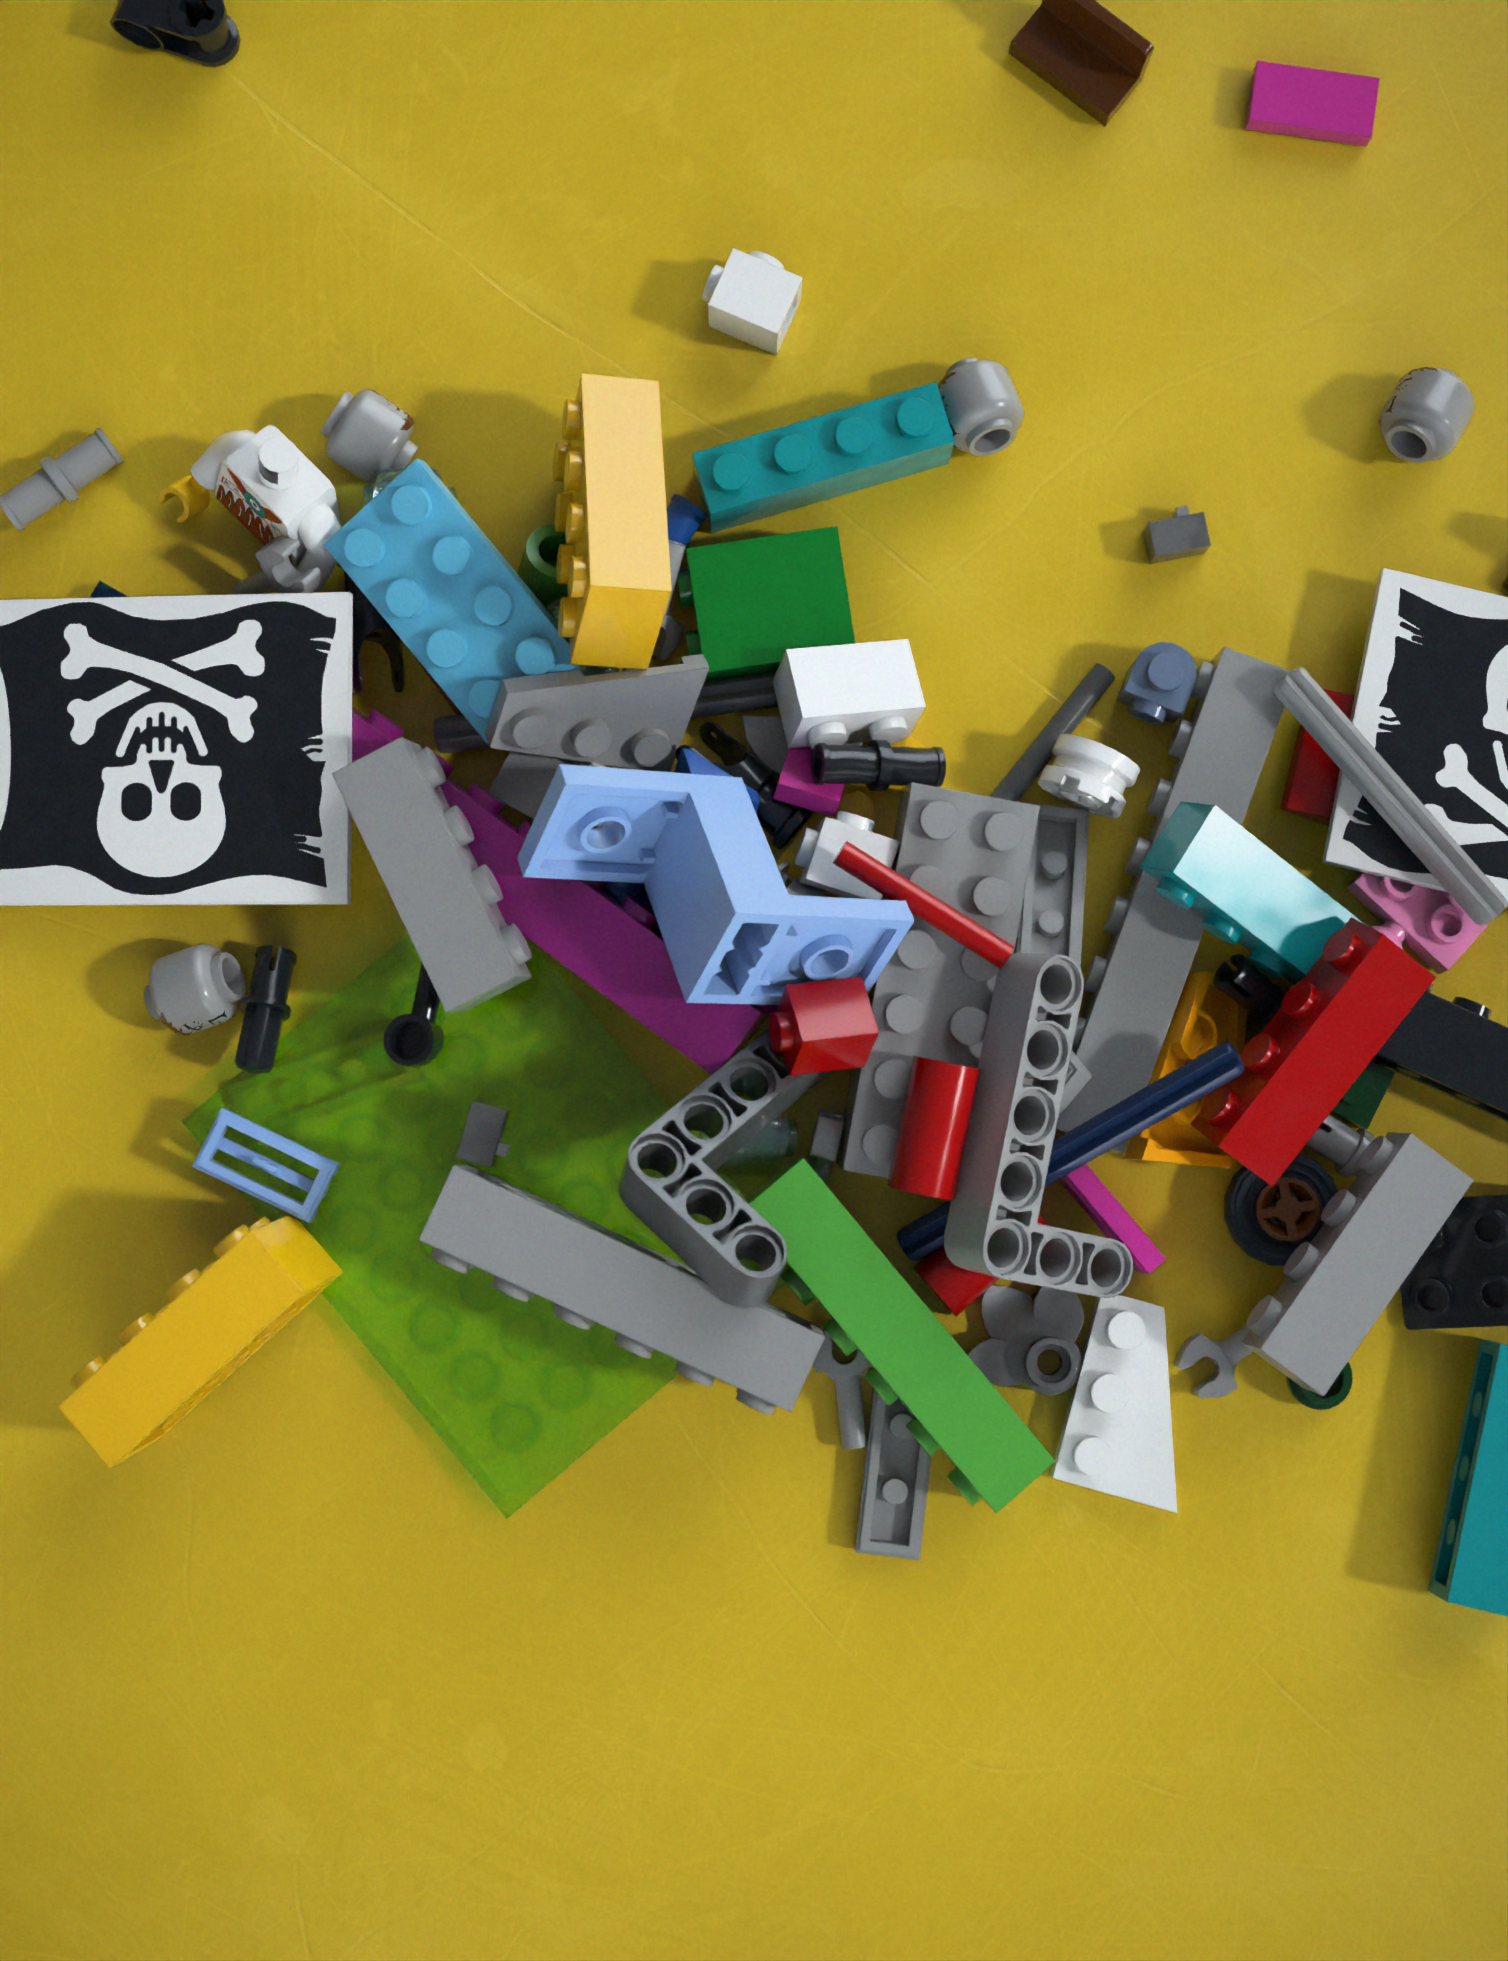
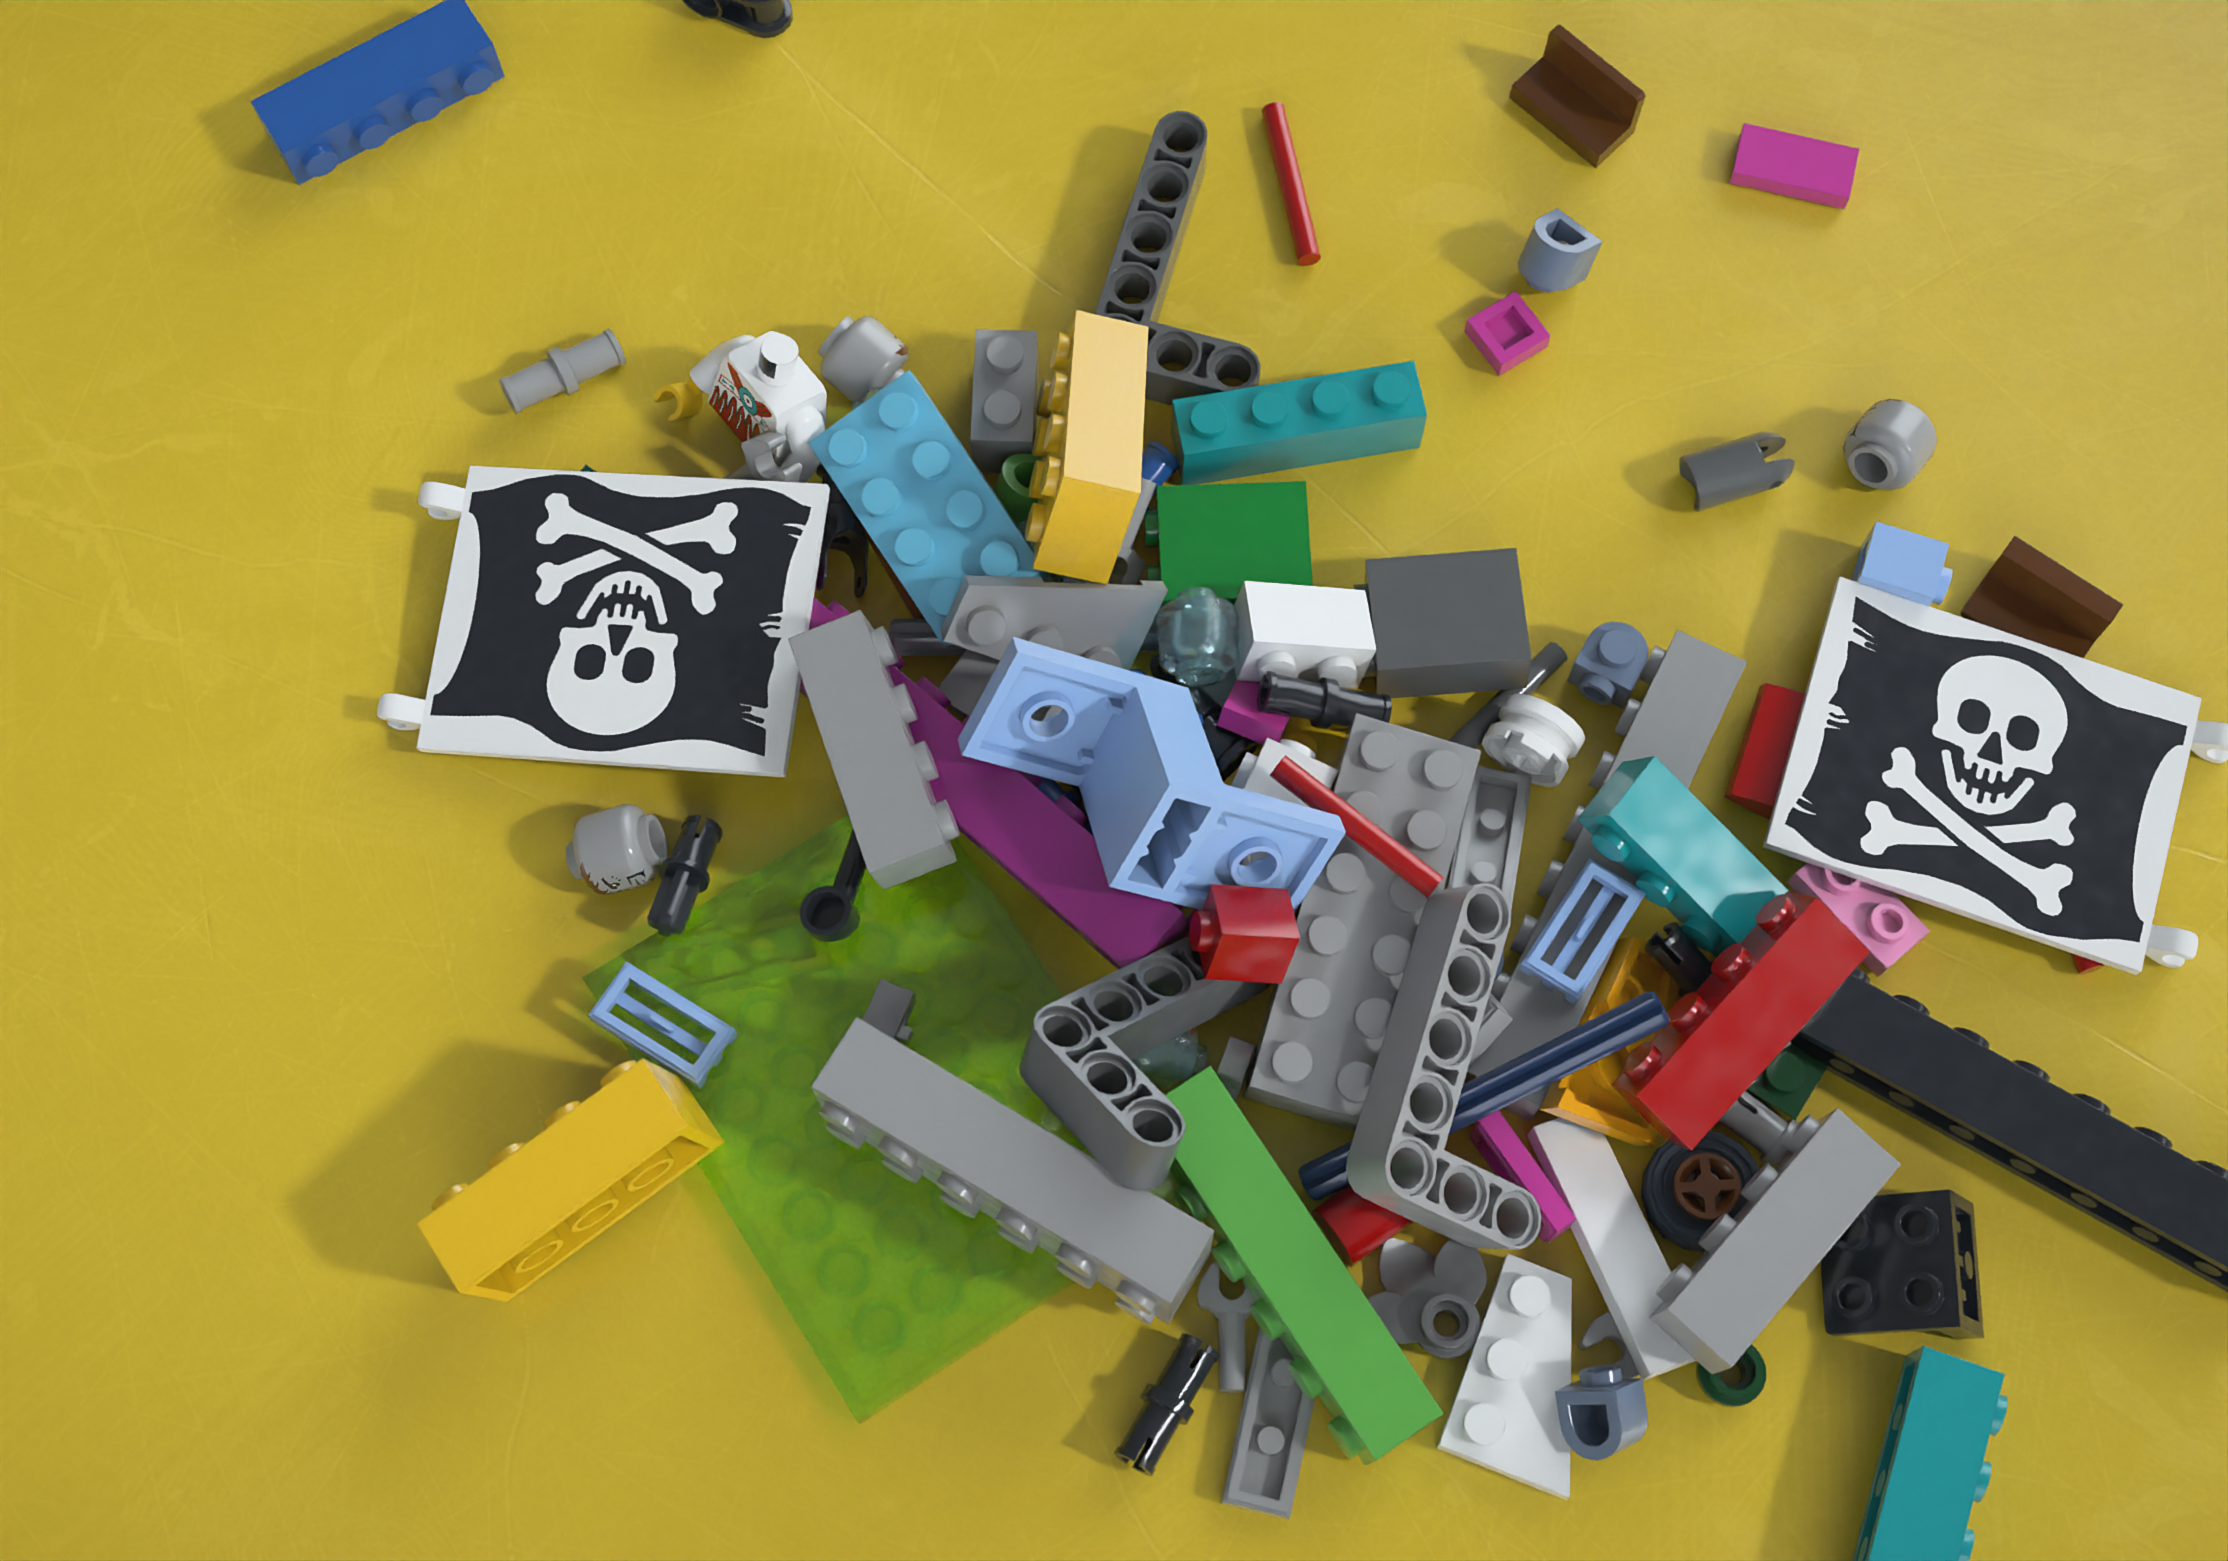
camera: 10 degrees right, 15 degrees down
(518, 463) = (1003, 396): none -> light grey brick
(653, 305) = (1149, 274): none -> dark grey beam
(745, 710) = (1198, 637): none -> clear light blue head
(753, 299) = (1246, 279): white brick -> none
(788, 180) = (1291, 184): none -> red bar
(794, 1470) = (1166, 1404): none -> black pin
(933, 1128) = (1347, 1045): red brick -> none
(981, 406) = (1456, 393): light grey head -> none
(992, 660) = (1447, 623): none -> dark grey brick
(1027, 328) = (1507, 333): none -> dark pink tile
(1065, 244) = (1549, 262): none -> sand blue plate
(1127, 1024) = (1553, 975): none -> light blue tile
(1176, 537) = (1637, 533): flat silver piece -> none
(1199, 1265) = (1611, 1237): none -> white tile
(1201, 1434) = (1602, 1412): none -> sand blue plate
(1270, 458) = (1735, 469): none -> dark grey piece
(1390, 796) = (1835, 786): light grey axle -> none
(1445, 548) = (1903, 564): none -> light blue brick

